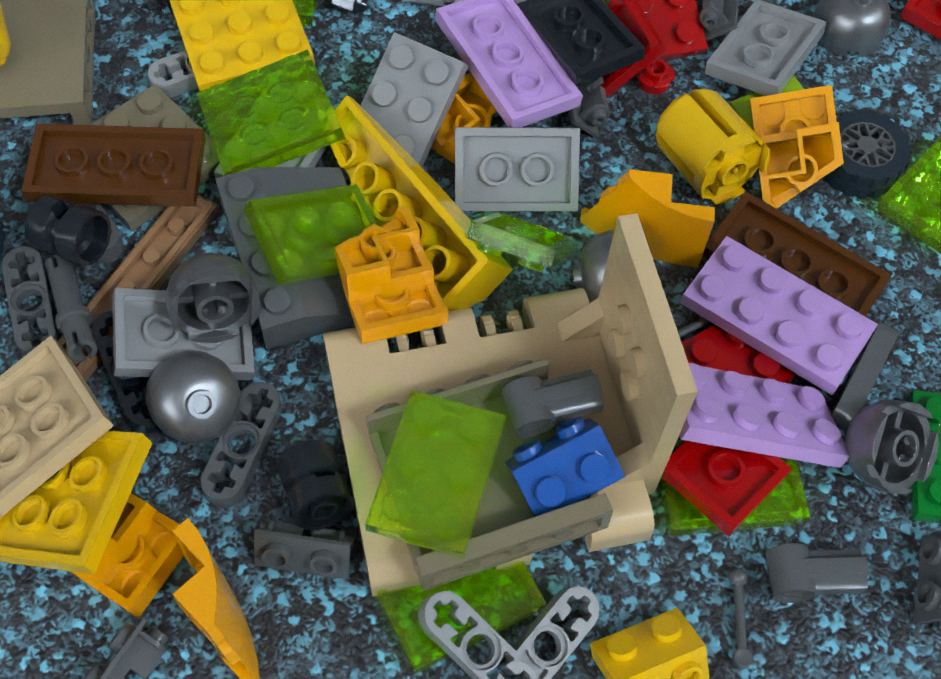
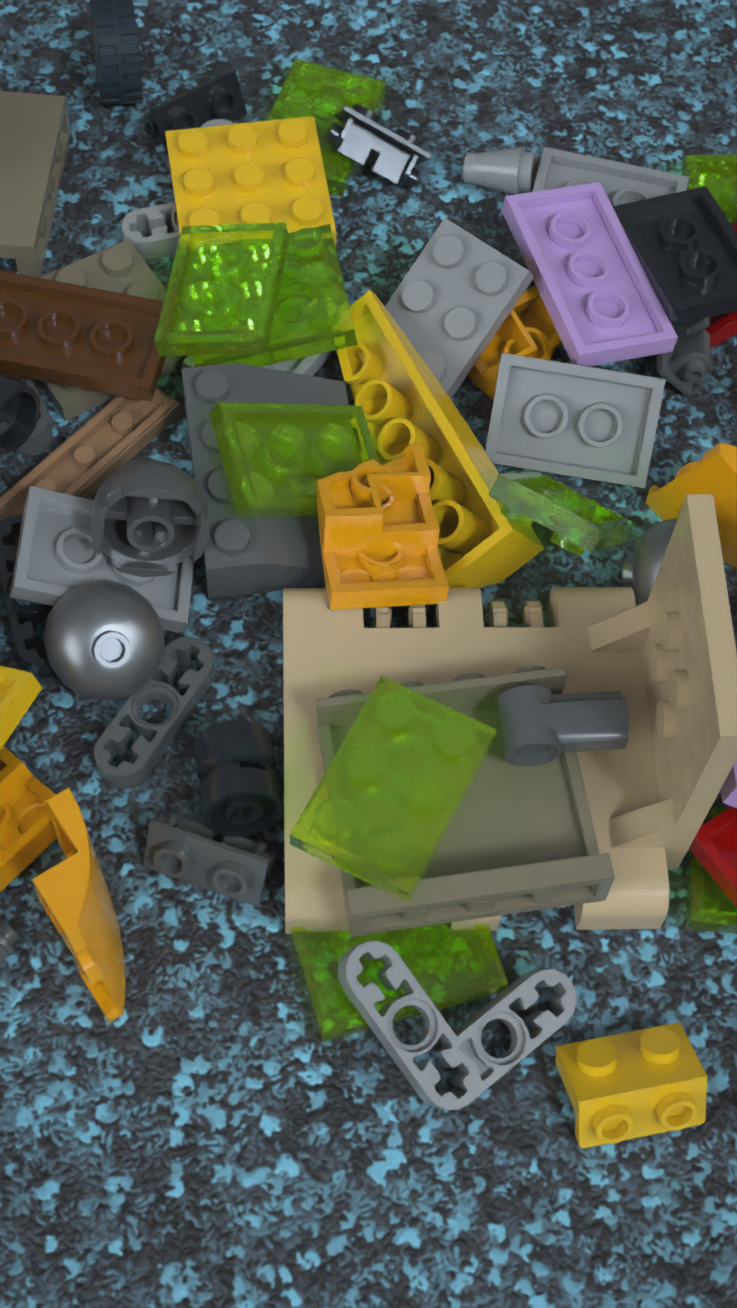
camera: 10 degrees right, 0 degrees up
(236, 113) = (223, 290): none -> clear neon green plate
(564, 466) = (562, 809): blue bracket -> none

